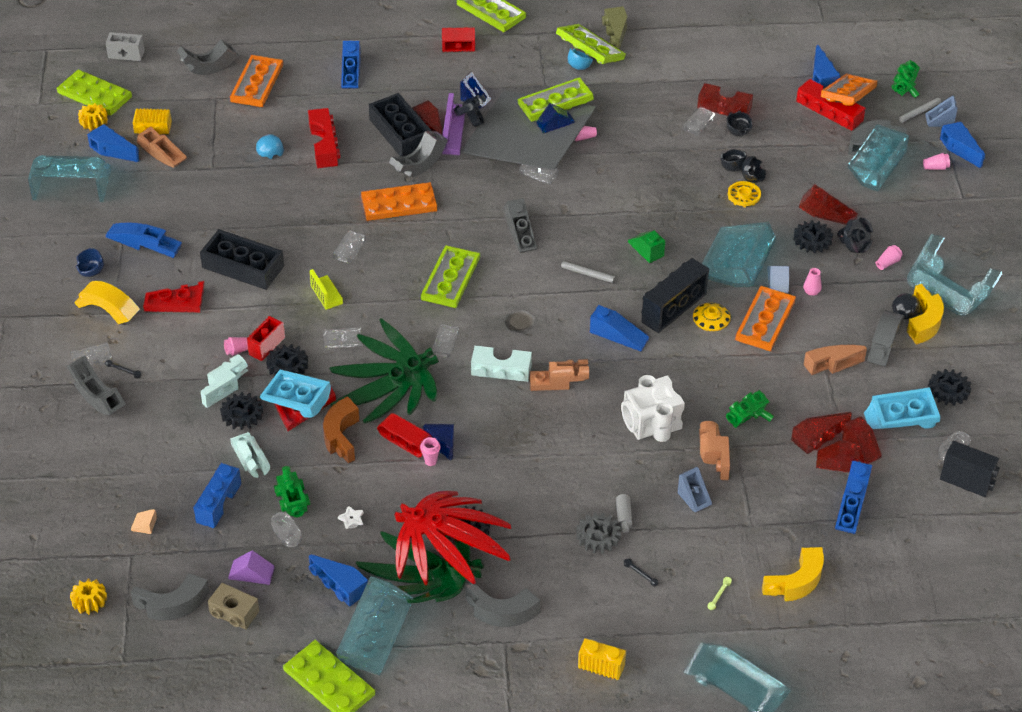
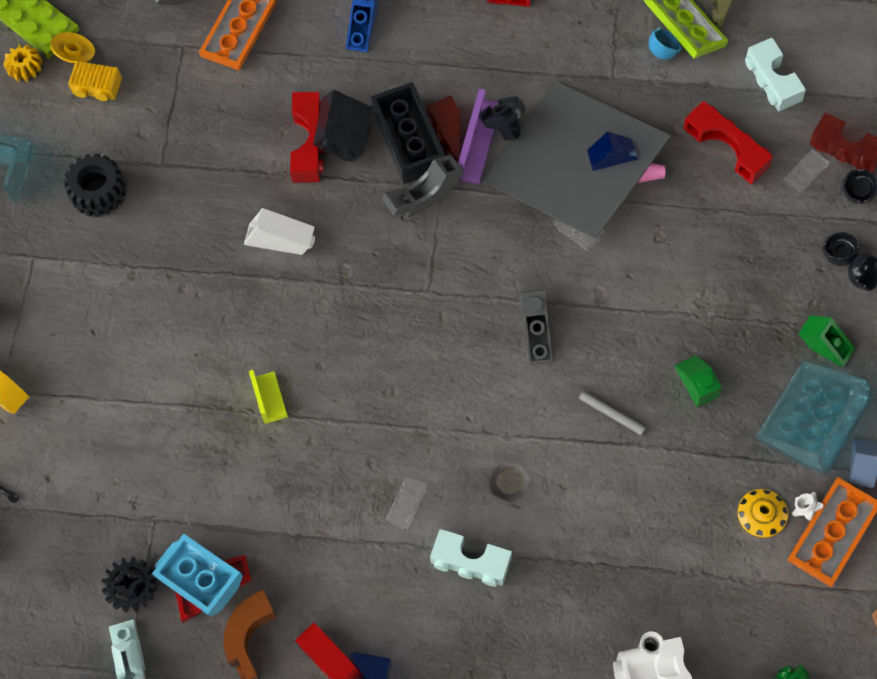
camera: 15 degrees right, 20 degrees up
(110, 144) = (36, 112): blue slope -> none
(129, 104) = (72, 47): none -> yellow dish
(139, 235) = (54, 278): blue slope -> none
(160, 147) = (99, 127): nougat slope -> none
(165, 180) = (87, 171): none -> black tyre
(178, 300) = (81, 385): red wing -> none
(223, 380) = (114, 529): light aqua plate -> none
(235, 345) = (143, 472): bright pink cone -> none
(242, 259) = (169, 334): black brick -> none
(265, 338) = (176, 472): red brick -> none
(269, 146) = (237, 141): dark azure hair -> none
(287, 359) = (201, 521): black gear -> none
(314, 193) = (279, 233): none -> white slope
(342, 338) = (277, 477): clear plate -> none
(349, 246) = (310, 324): clear plate -> none
(350, 125) = (342, 126): none -> black brick
(398, 201) = (386, 256): orange piece -> none
(406, 372) = (344, 555): dark green plant -> none
(450, 276) = (431, 397): lime piece -> none
(471, 87) = (513, 82): clear blue slope -> none
(559, 375) = (542, 590): nougat plate -> none
(563, 95) = (619, 114): lime piece -> none
(616, 328) = (634, 522): blue slope -> none
(623, 101) = (708, 124): none -> red arch
(670, 77) = (780, 90): none -> light aqua arch
(674, 295) = (717, 481): black brick -> none
(734, 210) = (827, 339): none -> green slope
(742, 305) = (802, 501): none -> white plate
(744, 193) = (845, 305): yellow wheel -> none

